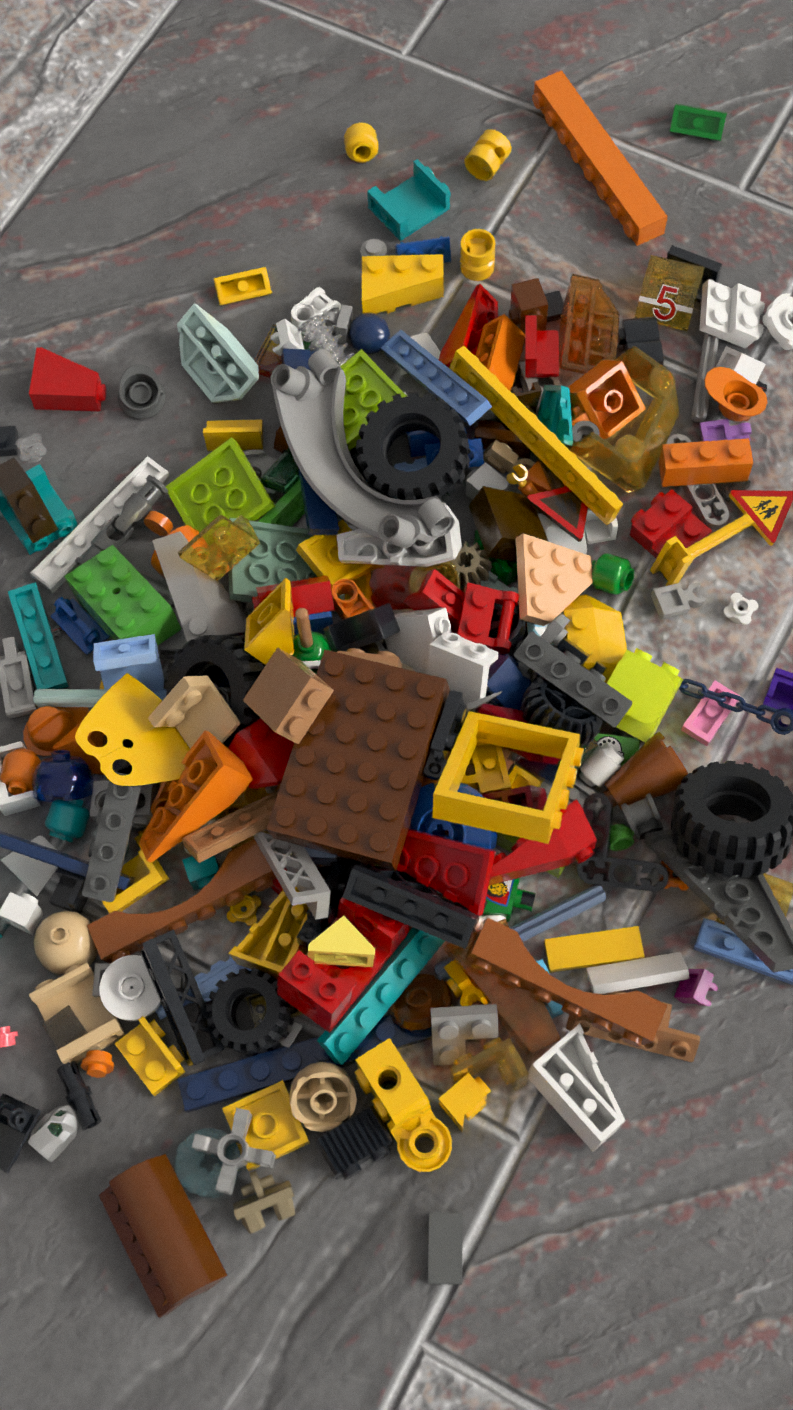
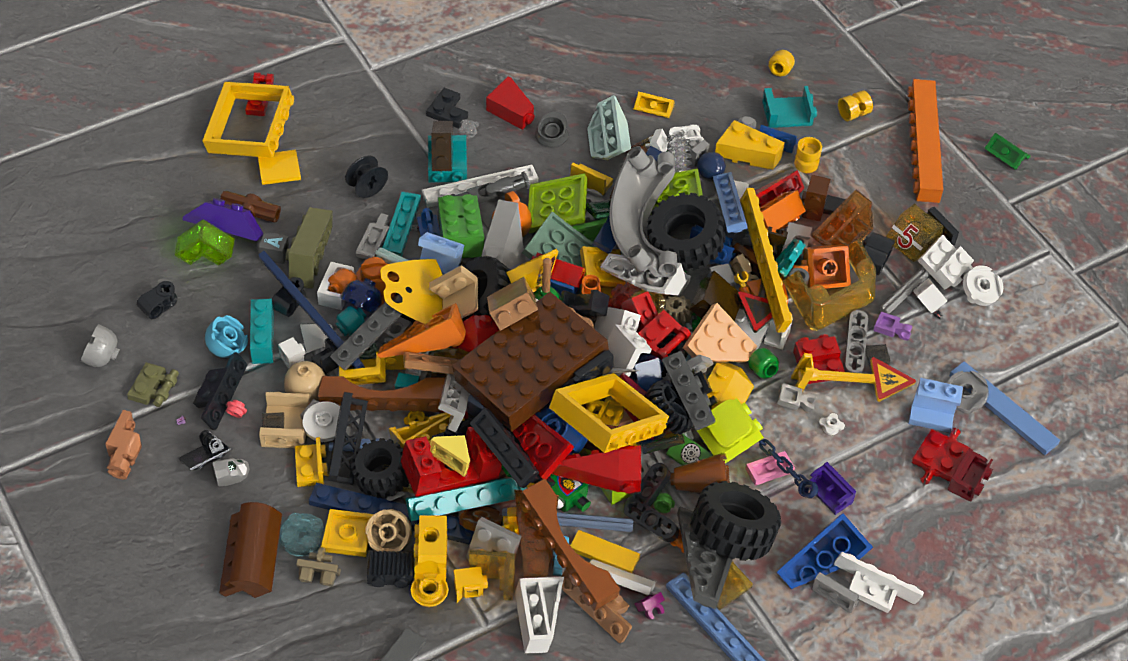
camera: 25 degrees right, 15 degrees down
(79, 1095) = (256, 461): black pin -> none
(97, 1063) = (278, 450): orange plate -> none
(220, 546) = (532, 217): clear yellow bracket -> none
(249, 1155) = (319, 522): light grey pin -> none
(540, 350) = (805, 220): red panel -> none
(601, 765) = (679, 456): white brick -> none
(643, 816) = (683, 493): dark grey piece -> none
(705, 462) = (865, 331): orange brick -> none
(735, 395) = (913, 305): orange piece -> none

